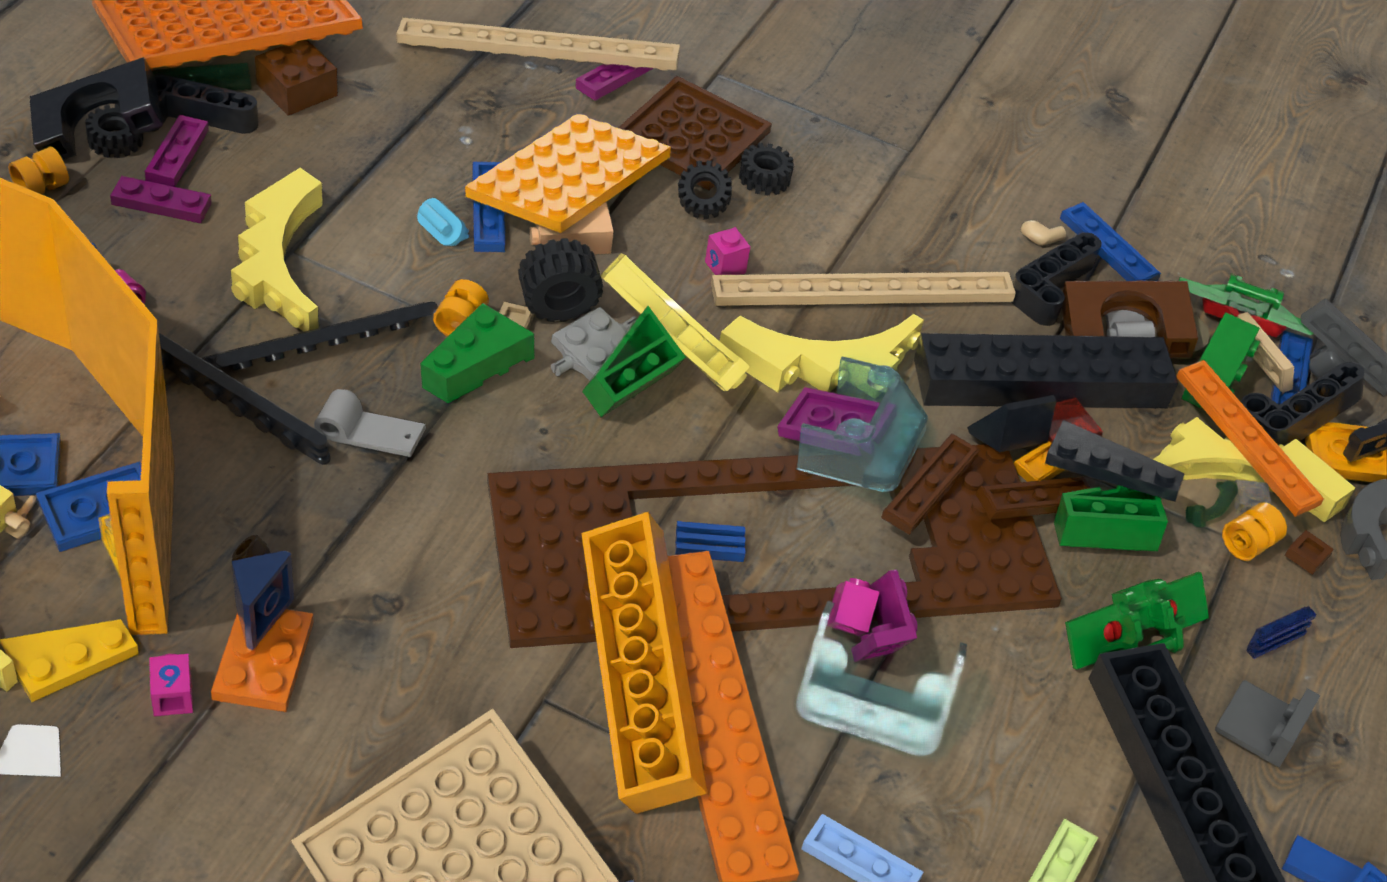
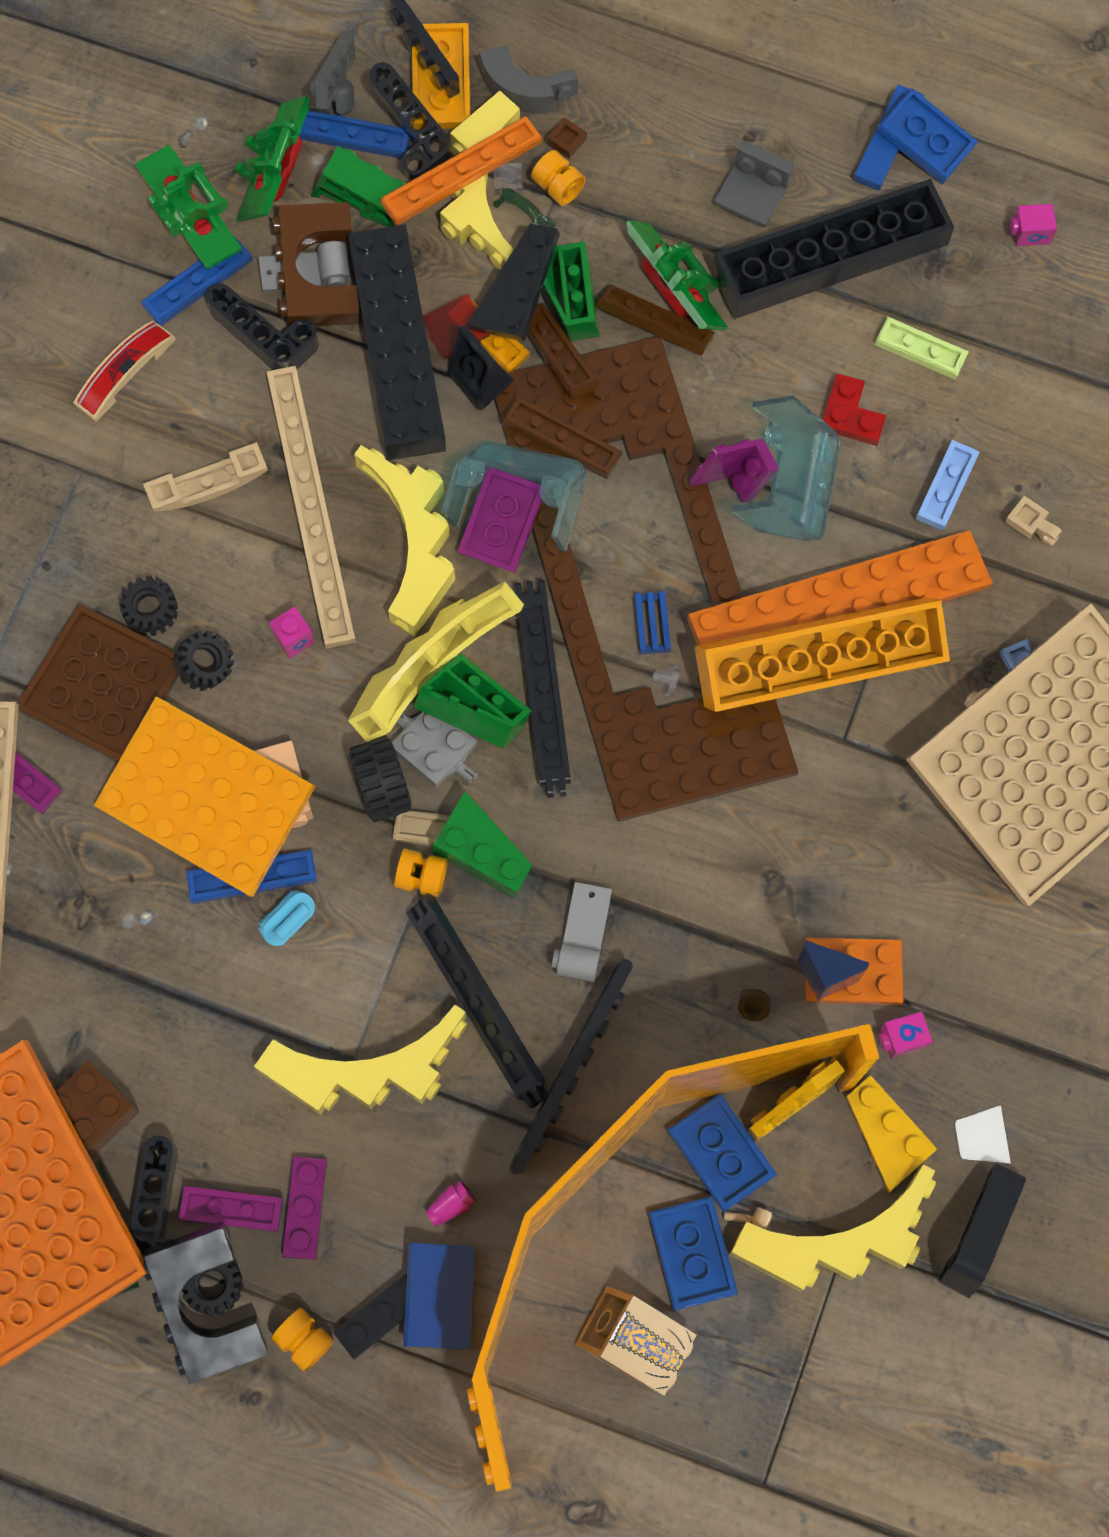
camera: 90 degrees left, 25 degrees up
(646, 434) = (543, 689): none -> black hinge
(853, 607) = (719, 494): dark pink brick -> none
(889, 219) = (207, 482): none -> tan slope
(966, 769) = (845, 415): none -> red plate
(1040, 200) = (120, 366): none -> slope
(1042, 235) = (197, 341): tan arm -> none
(1082, 595) = (655, 319): none -> reddish brown tile
(1184, 235) = (181, 210): none -> green piece
(1271, 359) = (320, 156): tan tile -> none
(1280, 632) = (661, 167): clear blue tile -> none

